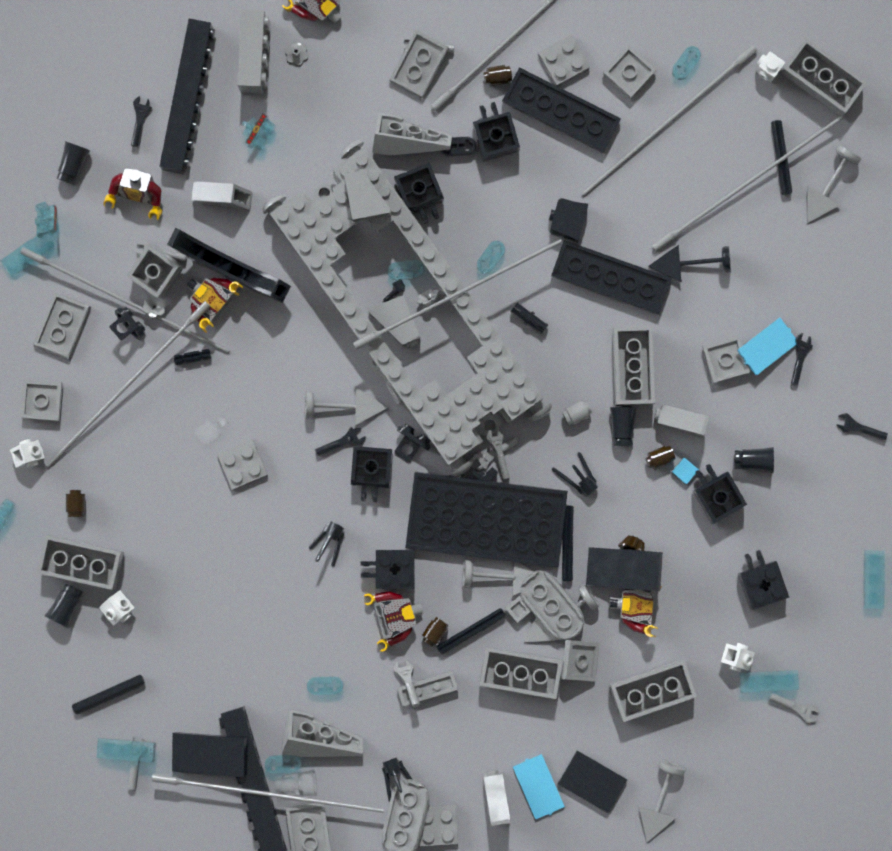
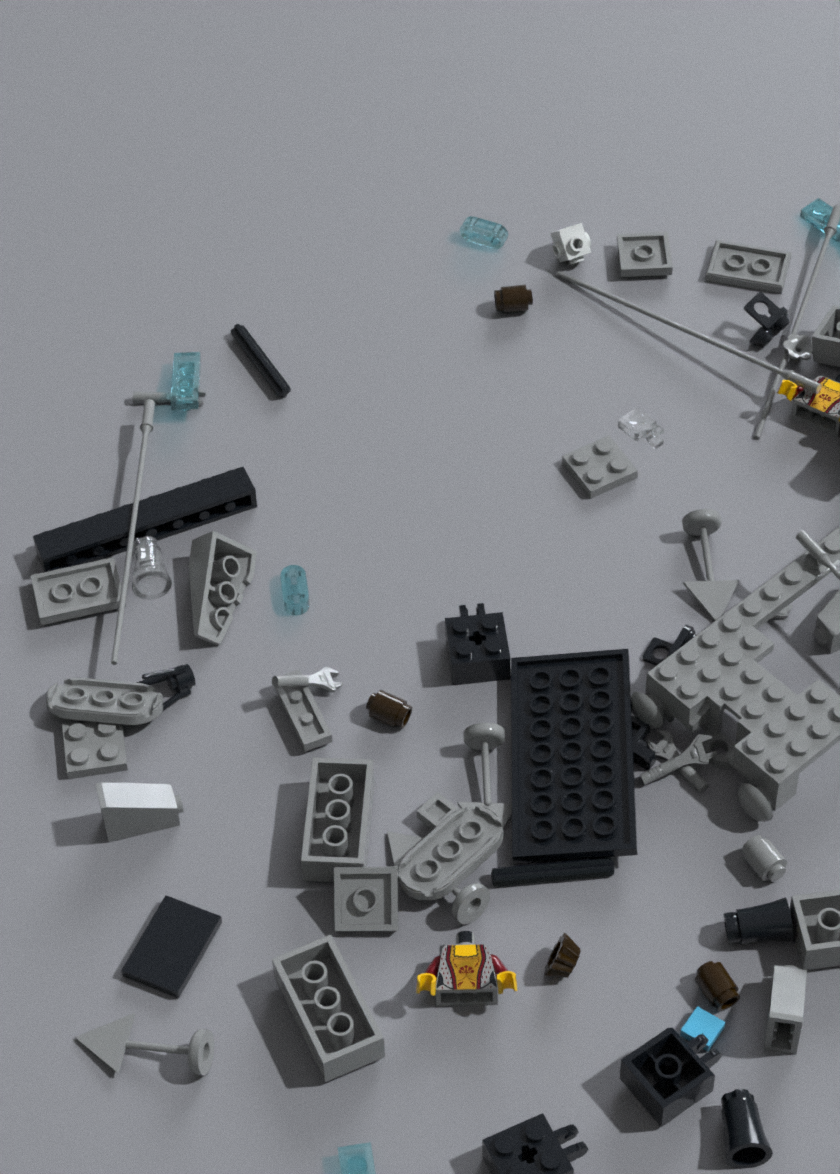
camera: 85 degrees right, 35 degrees down
(64, 605) = (374, 301): black plant -> none
(80, 562) = (434, 307): light grey brick -> none
(117, 608) = (378, 350): white brick -> none
(190, 357) = (739, 397): black axle -> none
(209, 754) = (185, 463): black tile -> none
(282, 768) = (172, 554): clear light blue beam -> none
(332, 532) = (520, 572): black plant -> none
(349, 438) = (662, 583): black piece -> none
(379, 477) = (620, 602): black hinge -> none
(395, 616) = (404, 654): torso -> none
(471, 631) = (395, 758): black axle -> none
(538, 786) = (159, 874): medium azure piece -> none
(587, 485) = (651, 884): black plant -> none
(624, 569) = (523, 941): black tile -> none
(738, 657) = (397, 1133): white brick -> none

